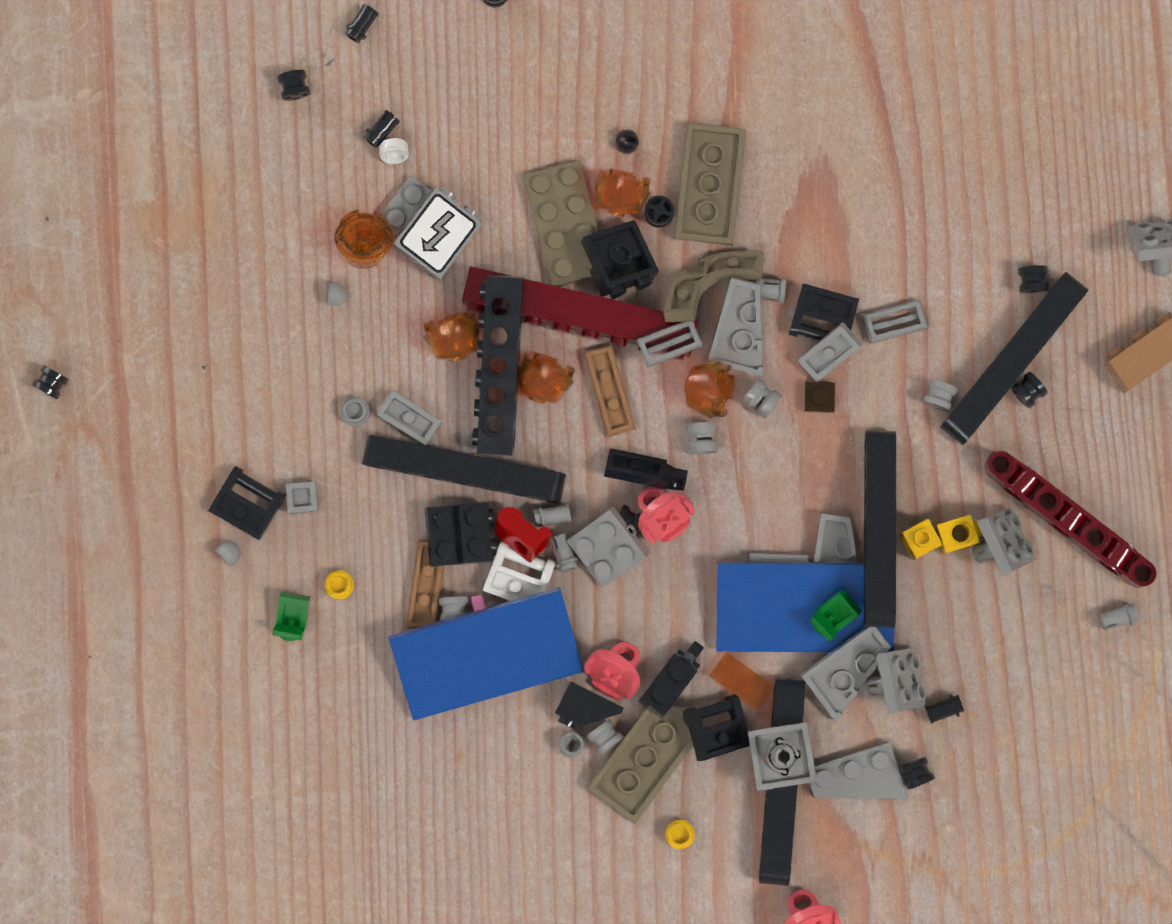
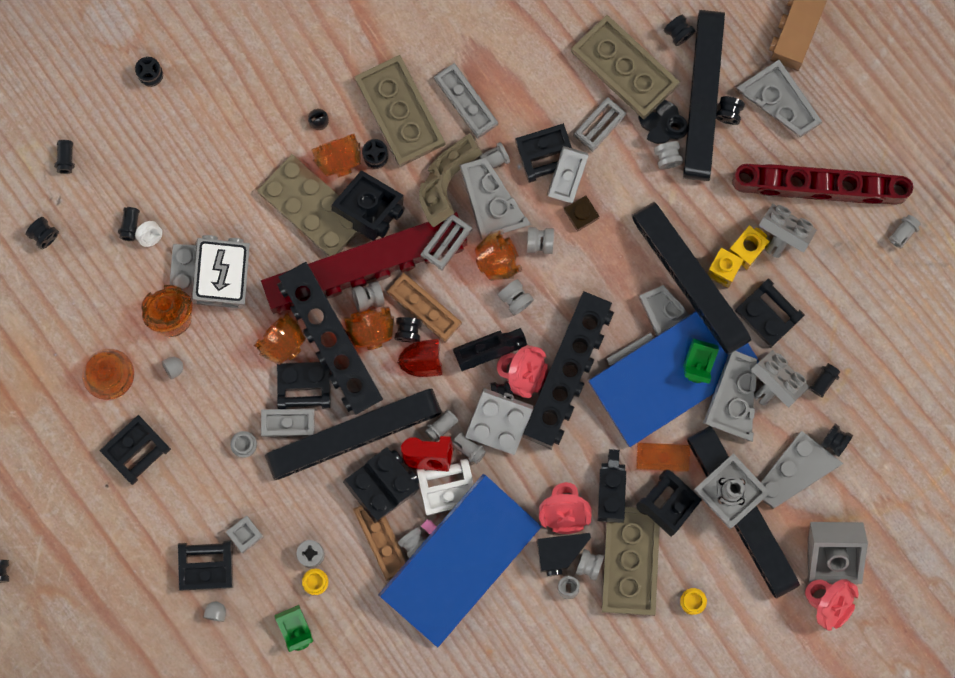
camera: 35 degrees left, 5 degrees down
(249, 341) = (129, 443): none -> black plate
(270, 262) = (108, 374): none -> clear orange cone
(355, 559) = (313, 556): none -> light grey wheel
(451, 383) = (303, 377): none -> black plate
(568, 344) = (368, 296): none -> light grey wheel
(574, 439) = (421, 359): none -> clear red brick
(579, 403) = (408, 329): none -> black wheel
(764, 492) = (588, 307): none -> black brick
(780, 215) = (466, 100): none -> light grey tile
(845, 877) = (837, 551): none -> light grey slope
(926, 614) = (763, 318): none -> black plate
(956, 281) = (625, 67): none -> dark tan plate
(957, 357) = (661, 121): none -> black plate
(1087, 410) = (781, 98): none -> light grey wing

